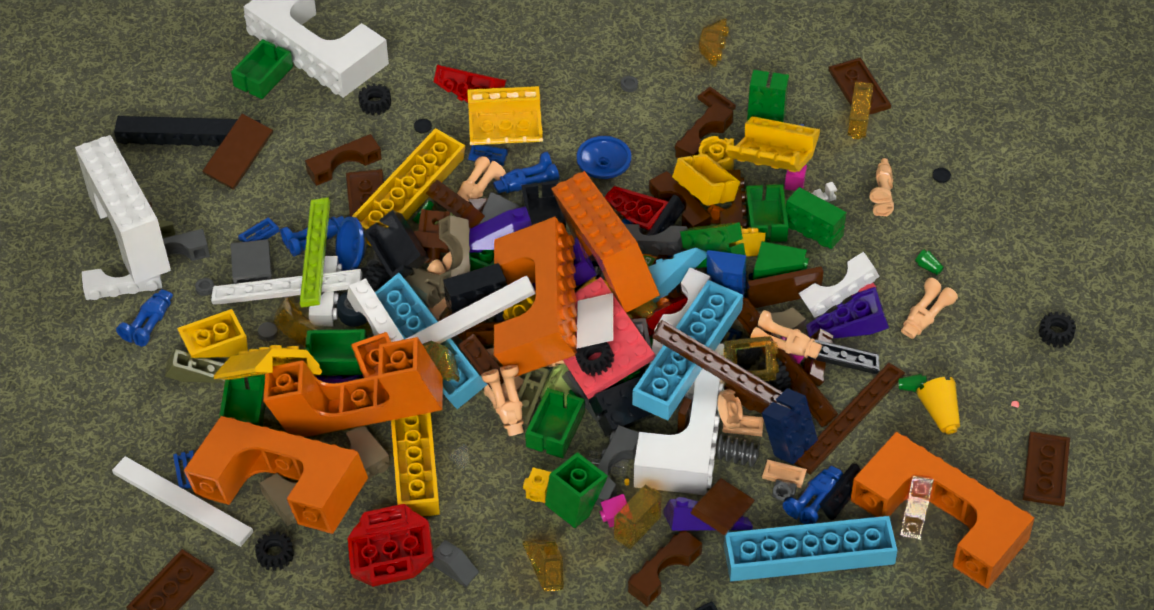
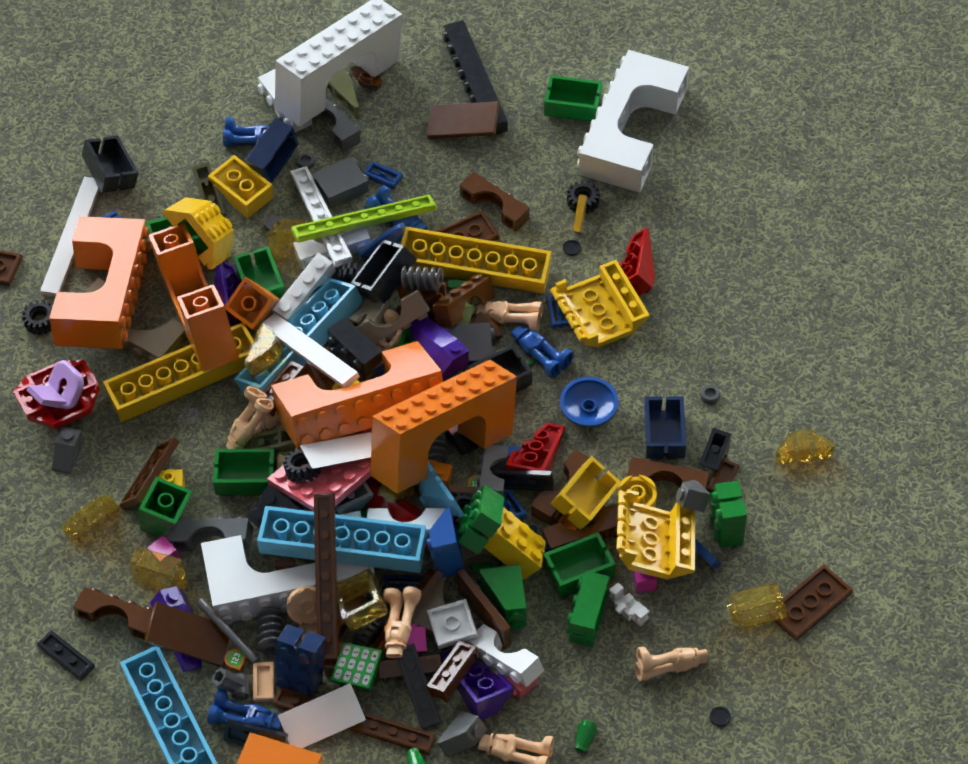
camera: 70 degrees right, 5 degrees up
(118, 437) = (110, 167): none -> black piece
(187, 295) = (273, 150): none -> dark blue piece
(398, 102) = (580, 213): none -> yellow tile
(407, 533) = (49, 393): none -> lavender piece
(429, 212) = (422, 280): none -> dark grey piece
(521, 498) = (148, 473): none -> reddish brown tile
(654, 117) = (664, 428): none -> dark blue piece
(692, 90) = (716, 449): none -> black slope
(728, 478) = (227, 630): none -> flat silver bar
(743, 111) = (693, 496): none -> dark grey slope
(753, 488) = (235, 660): none -> tile
(793, 311) = (452, 623): none -> white tile
(814, 385) = (357, 666): none -> tile
(842, 322) = (452, 670): none -> container
(844, 433) = (322, 717): none -> white sticker
(898, 338) = (462, 734): none -> dark grey slope

